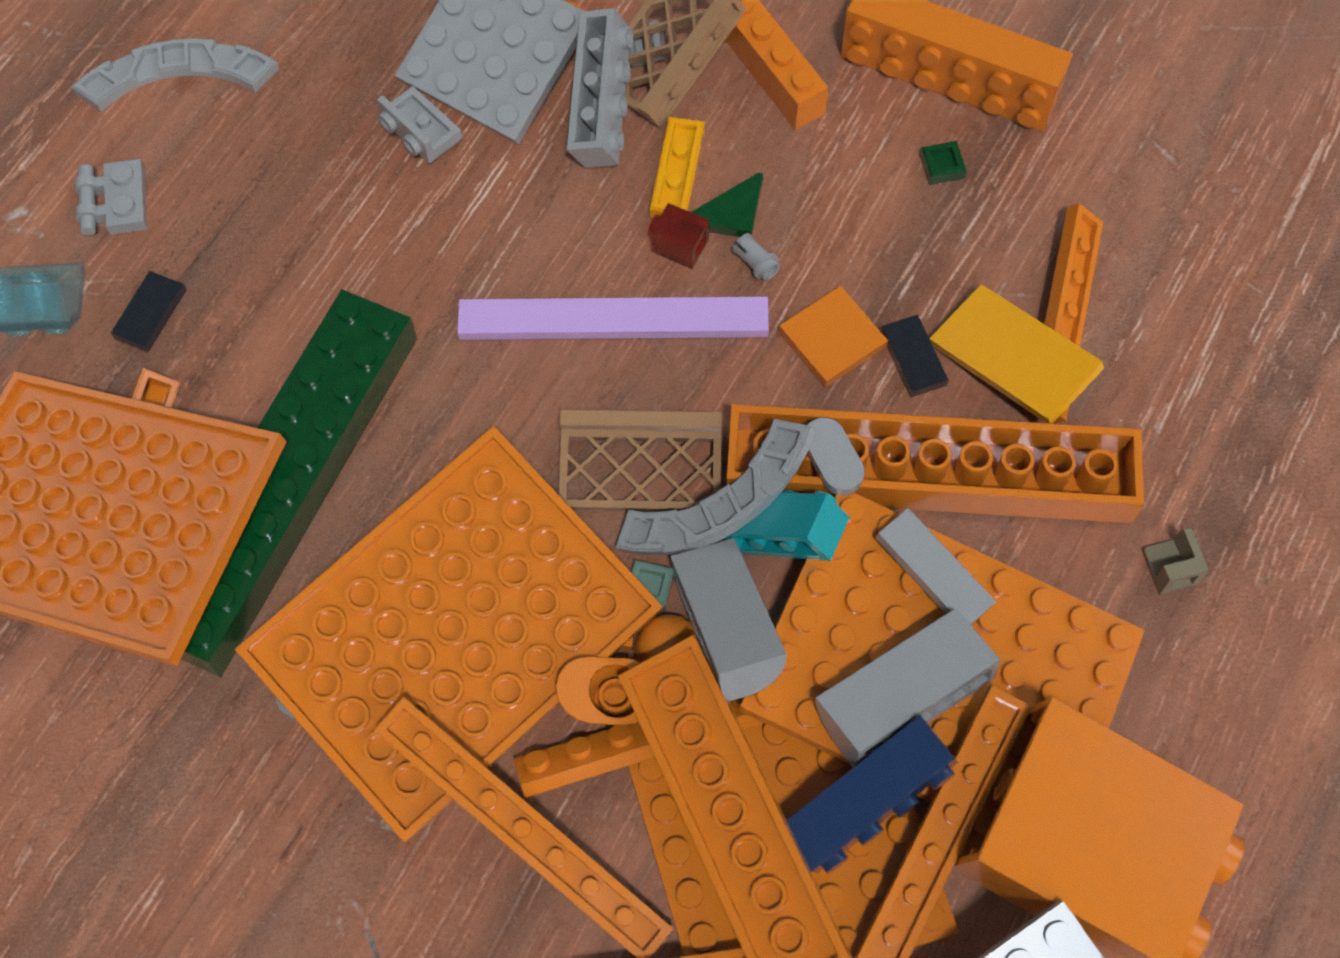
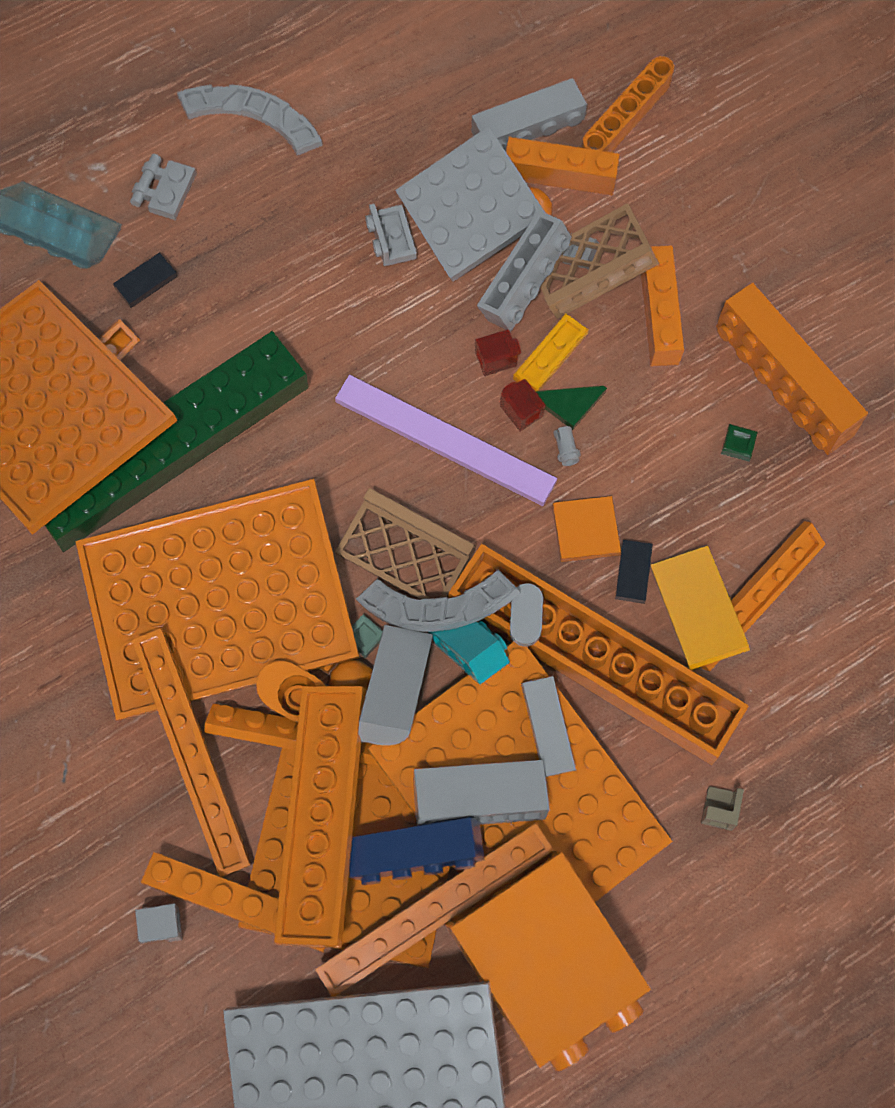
camera: 25 degrees right, 5 degrees up
(616, 193) = (497, 352): none -> clear red brick

